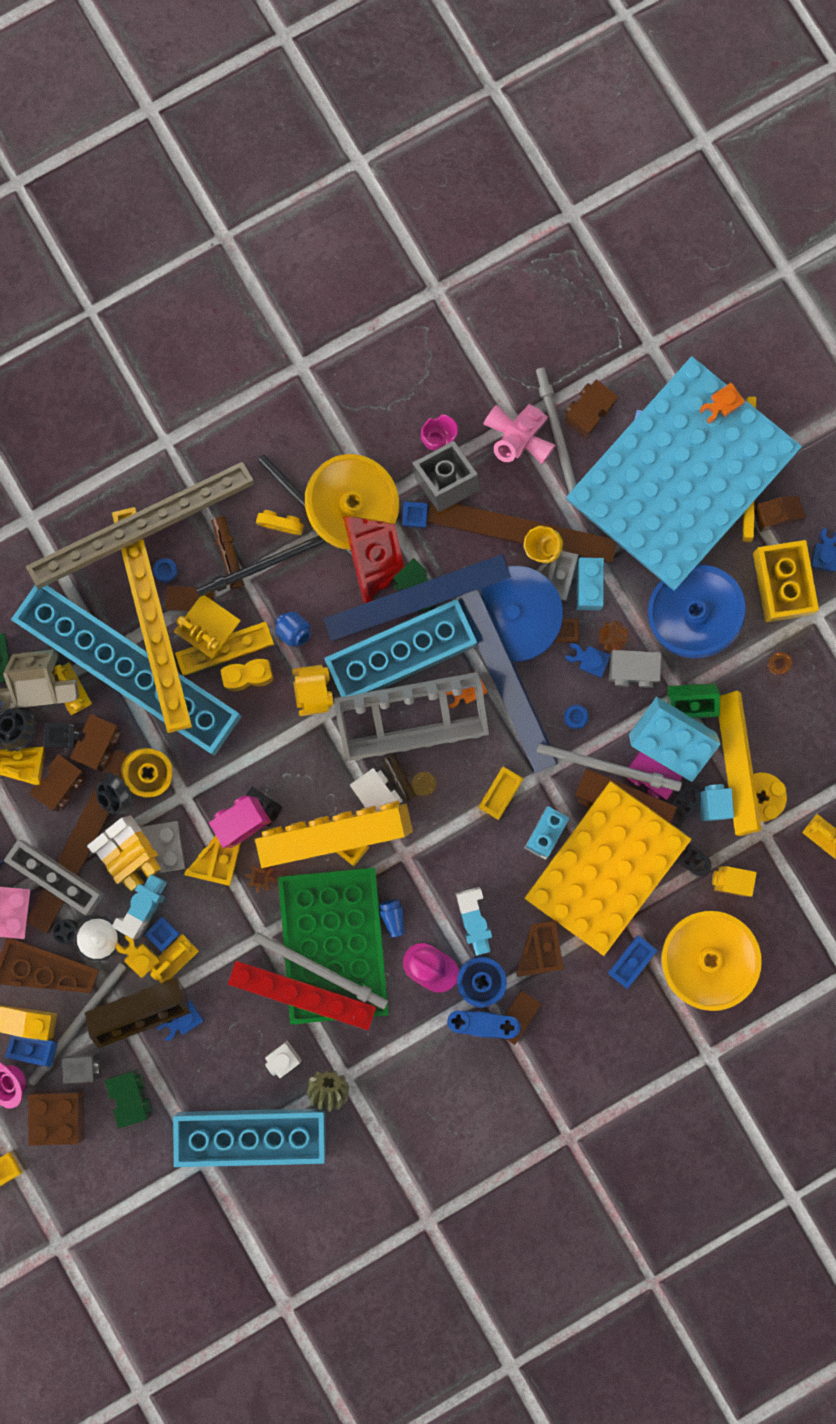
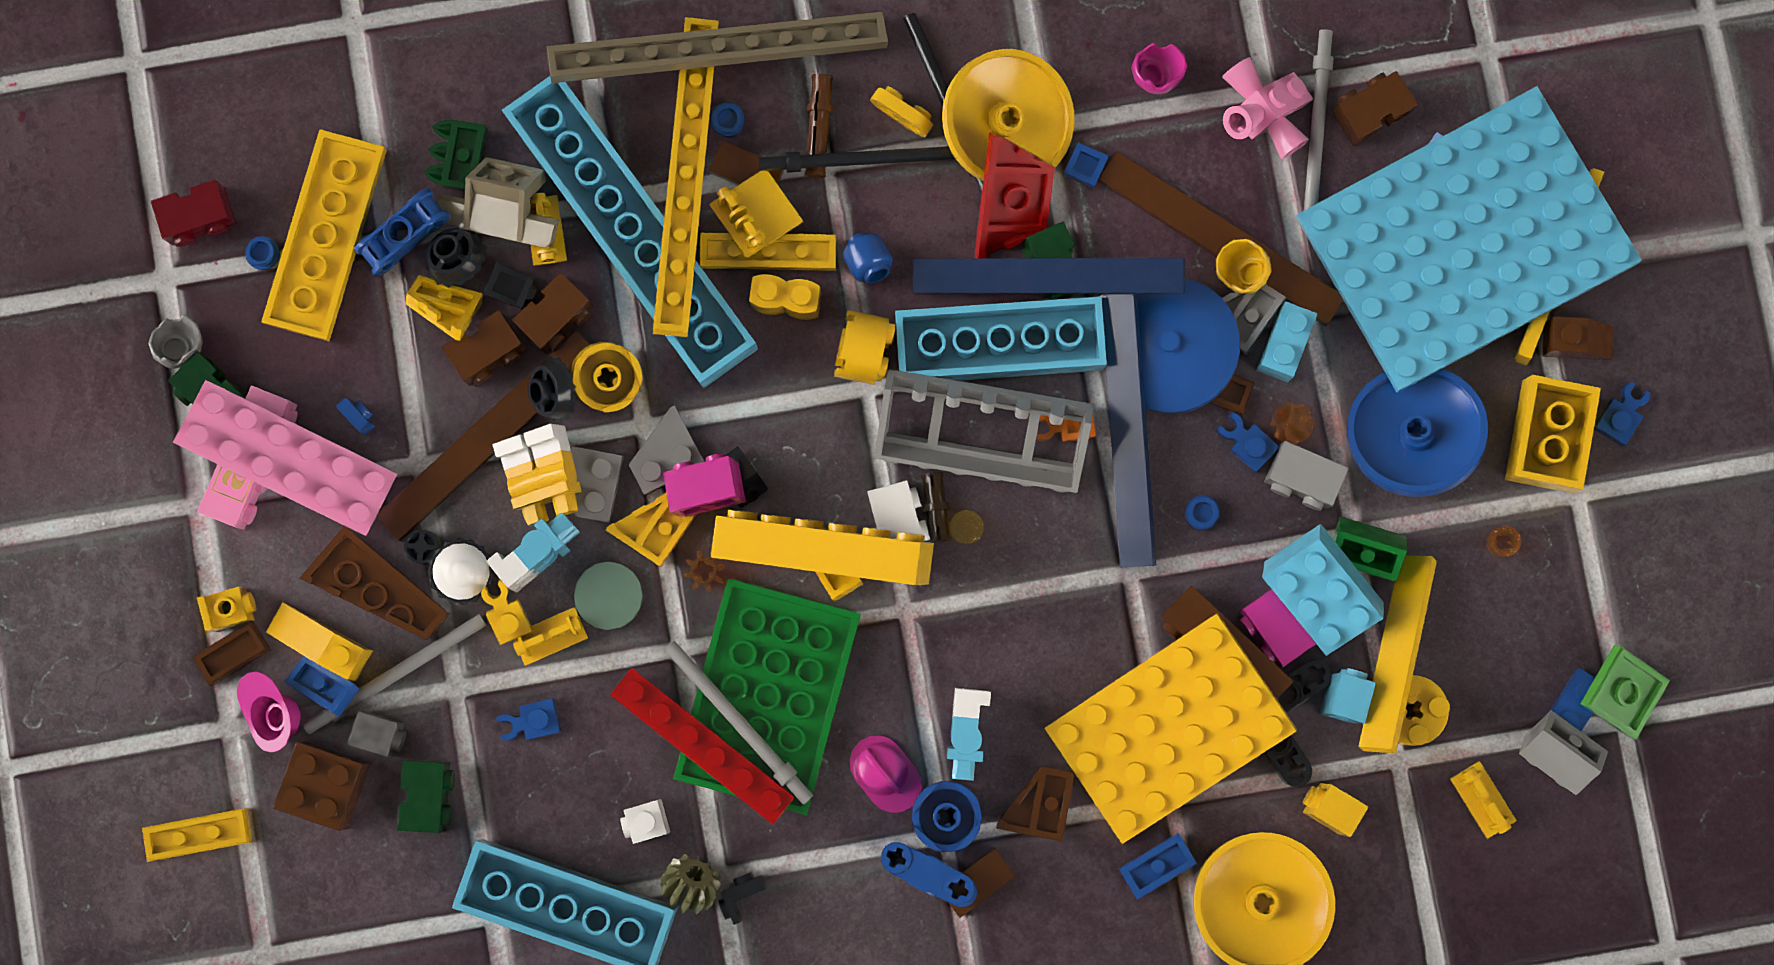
camera: 25 degrees right, 0 degrees up
(54, 877) = (434, 470): light grey brick -> none
(137, 1012) = (478, 688): dark brown brick -> none
(162, 934) = (548, 597): blue plate -> none
(202, 917) = (608, 595): none -> sand green tile
(203, 806) = (664, 448): none -> light grey wing
(364, 1078) = (744, 886): none -> black bracket
(392, 915) = (860, 688): blue cone -> none
(446, 476) = (1146, 128): dark grey brick -> none
(500, 793) = (1064, 577): yellow tile -> none
(546, 833) = (1106, 651): medium azure hips -> none
(656, 780) = (1277, 635): light grey bar -> none
(724, 402) = (1558, 162): orange plate -> none

